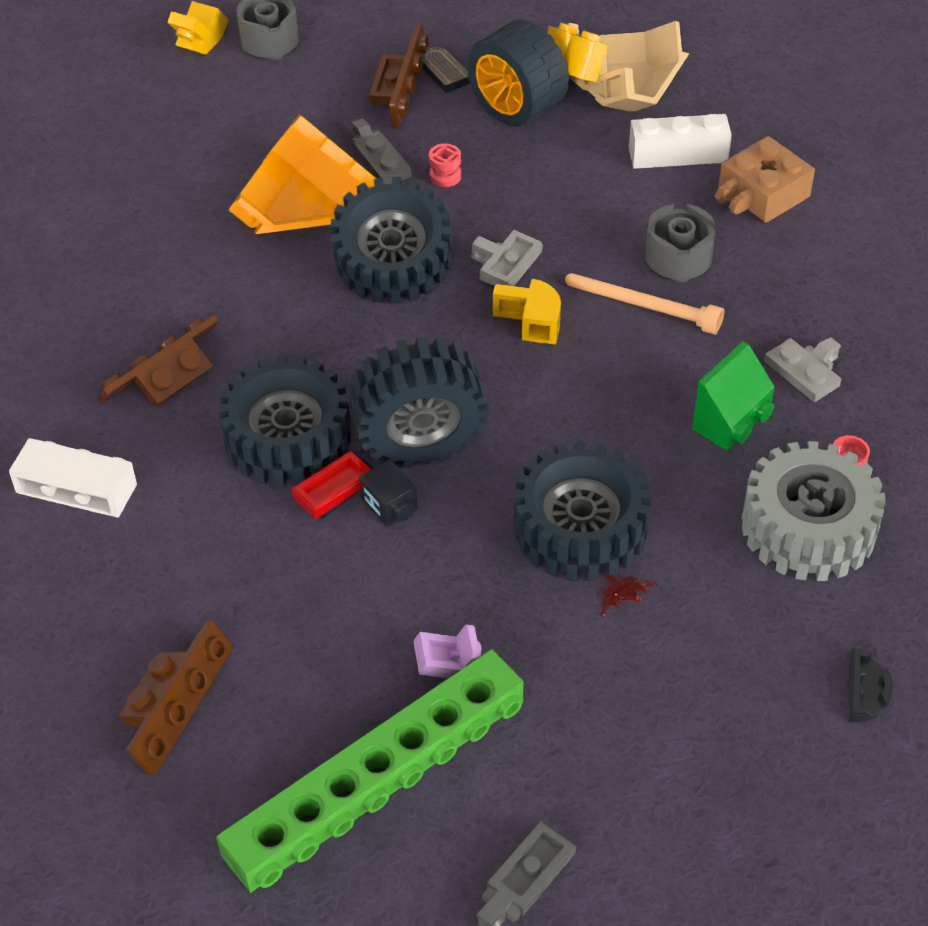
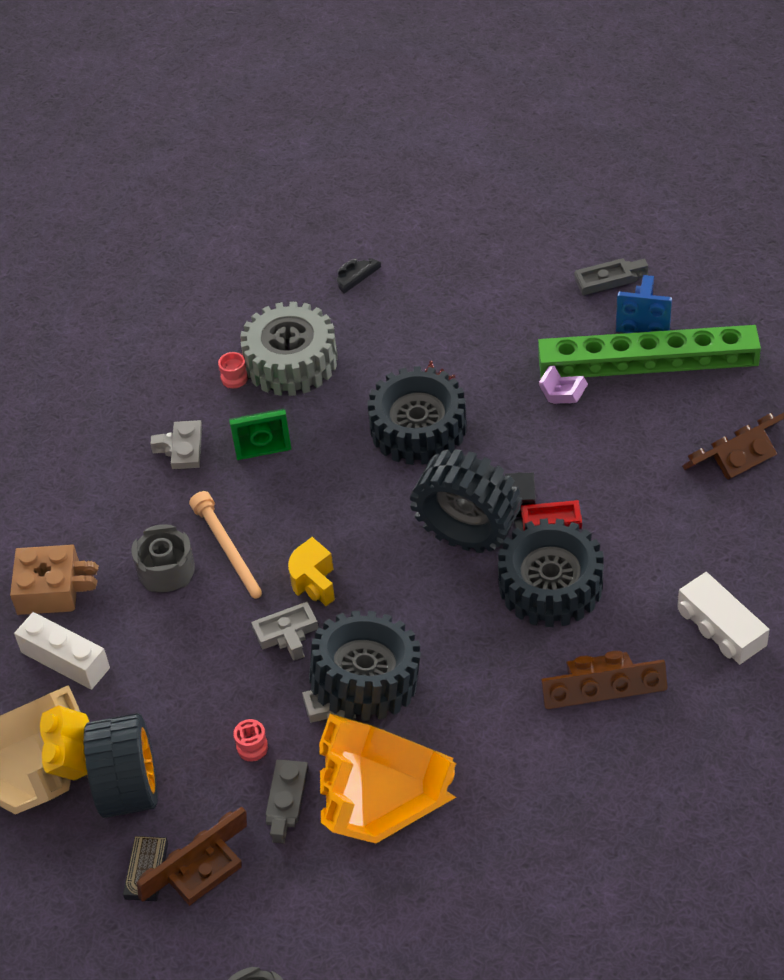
camera: 140 degrees left, 0 degrees up
(416, 802) = (643, 310): none -> blue bracket

